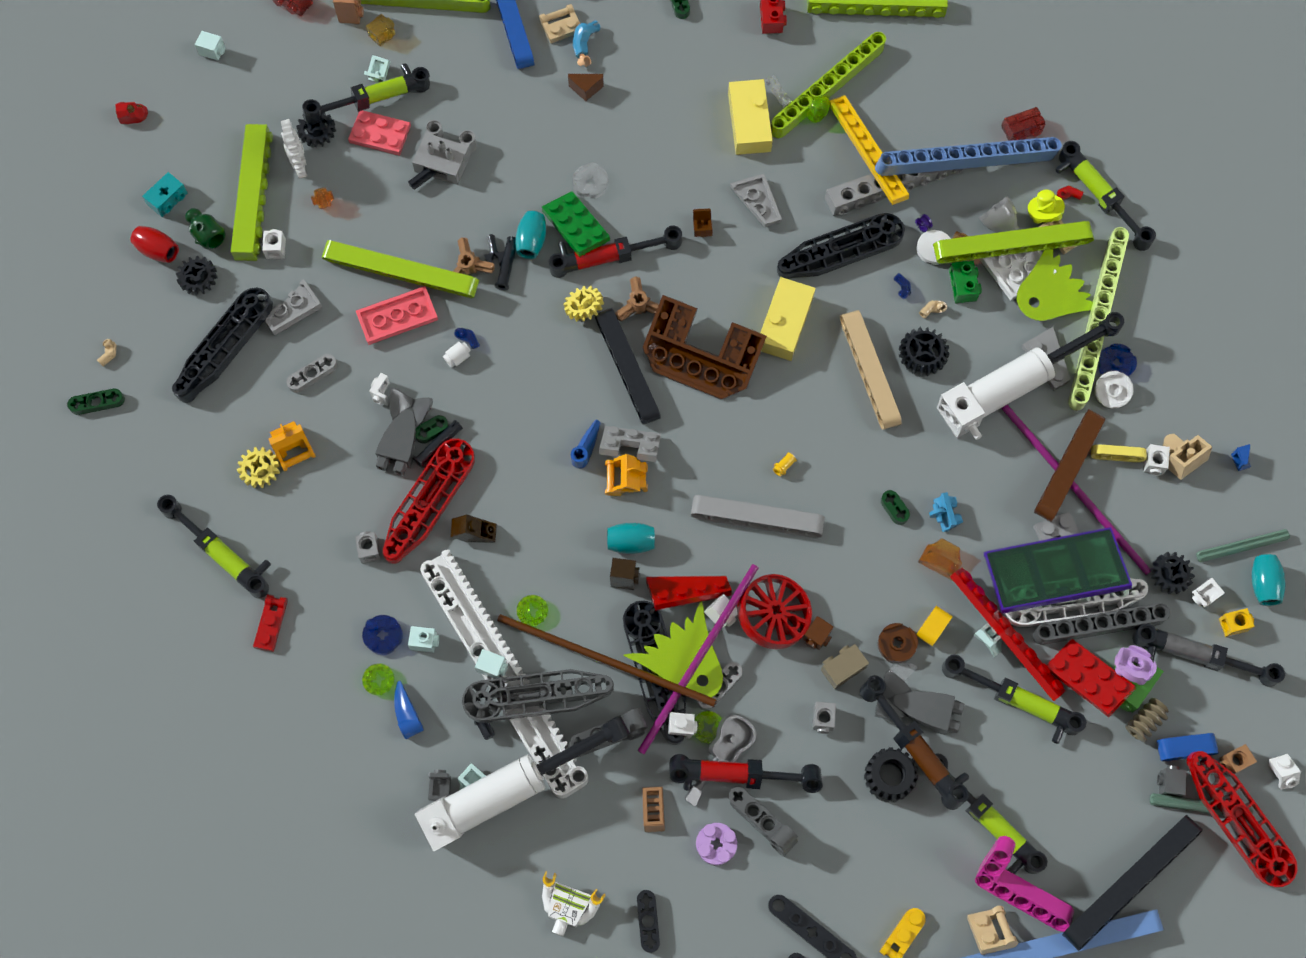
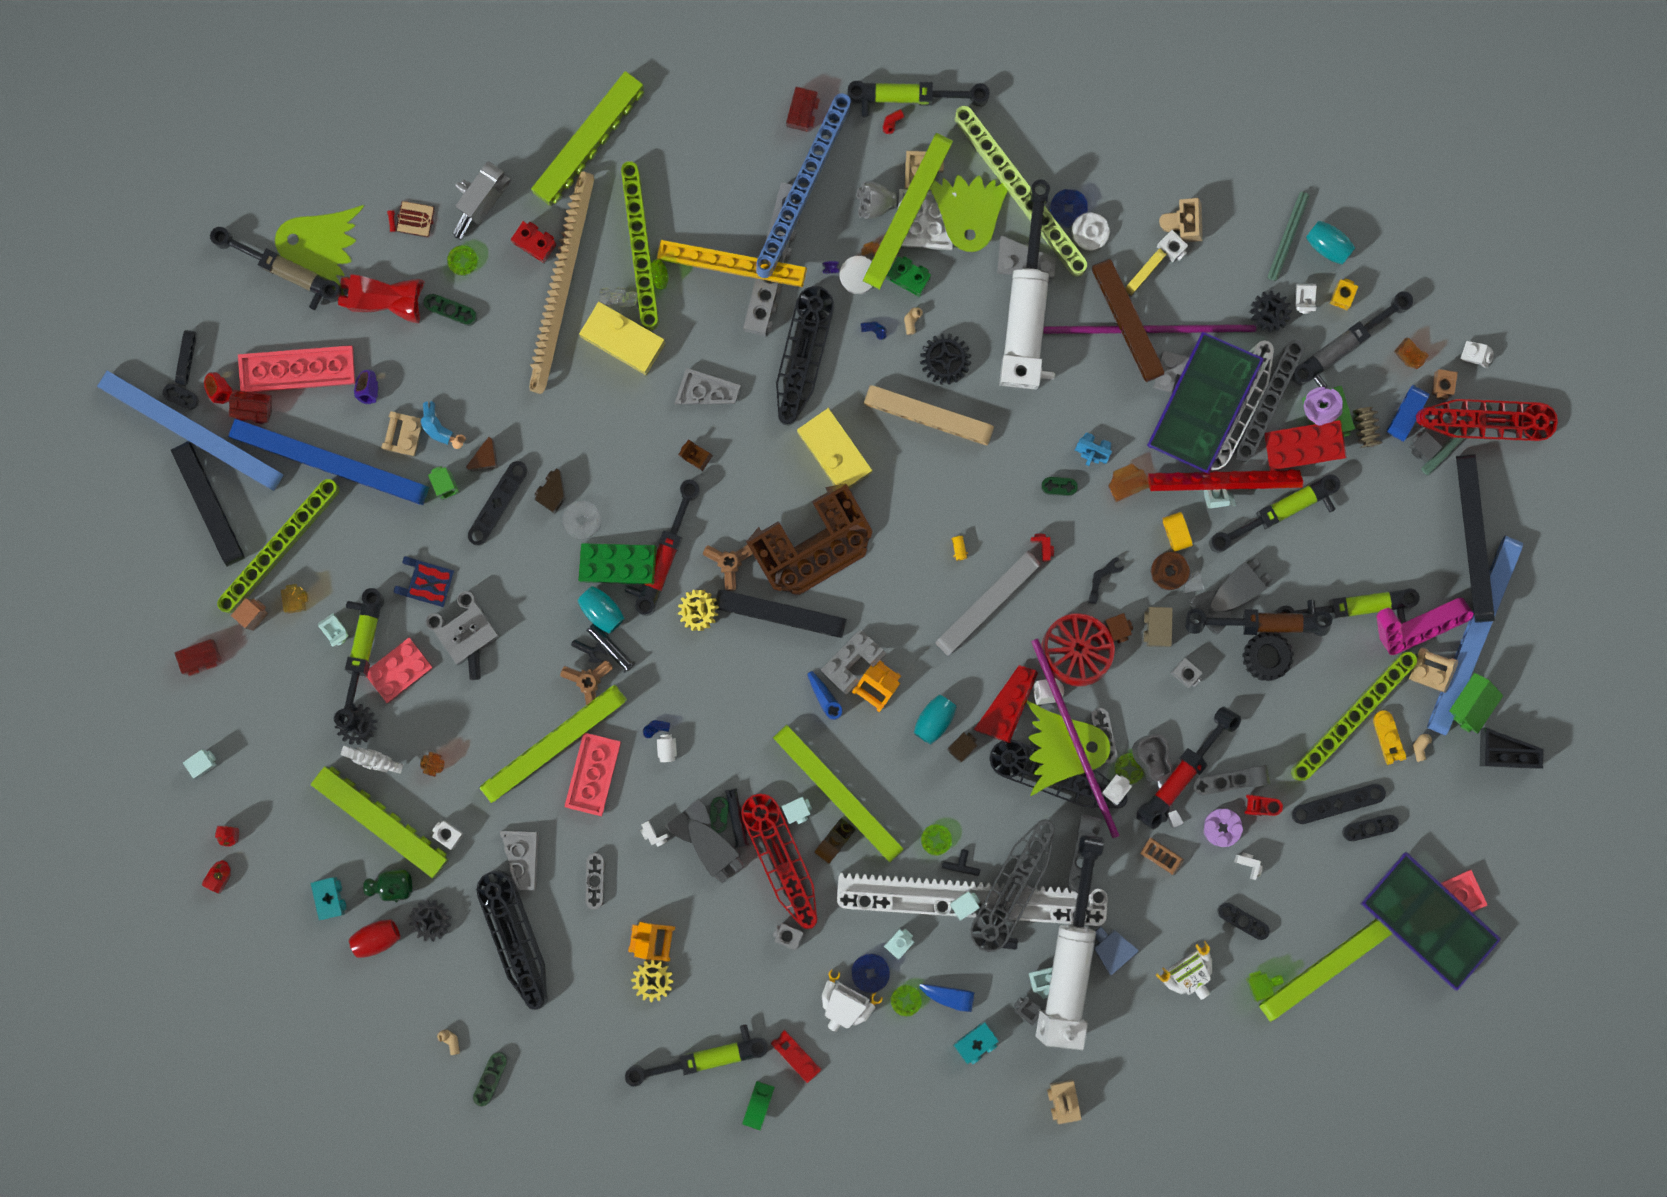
camera: 50 degrees left, 15 degrees up
(167, 97) = (227, 835): none -> red rock
(205, 616) = (758, 1105): none -> green brick
(339, 630) = (845, 1005): none -> white torso
(371, 754) = (964, 1044): none -> teal brick
(379, 874) = (1065, 1102): none -> tan brick
(461, 110) = (428, 583): none -> flag
(477, 484) = (797, 810): none -> light aqua brick
(514, 507) = (838, 793): none -> lime beam
(524, 646) = (961, 866): none -> black piece
(542, 822) = (1113, 949): none -> sand blue torso
(544, 67) = (443, 482): none -> bright green brick
(547, 115) = (505, 491): none -> black piece
(596, 145) = (552, 493): none -> dark brown slope
(607, 660) = (1023, 811): reddish brown piece -> none
(703, 883) = (1247, 859): none -> white bracket
(756, 50) = (560, 283): none -> tan gear
(760, 863) = (1261, 805): none -> red piece
(837, 531) = (1046, 549): none -> red bracket
(848, 588) = (1109, 569): none -> black piece
(908, 888) = (1344, 720): none -> lime beam
(1046, 207) = (893, 154): neon yellow plate -> none
(1236, 713) = (1411, 354): none -> clear orange bracket
(1240, 457) = (1219, 176): blue slope -> none

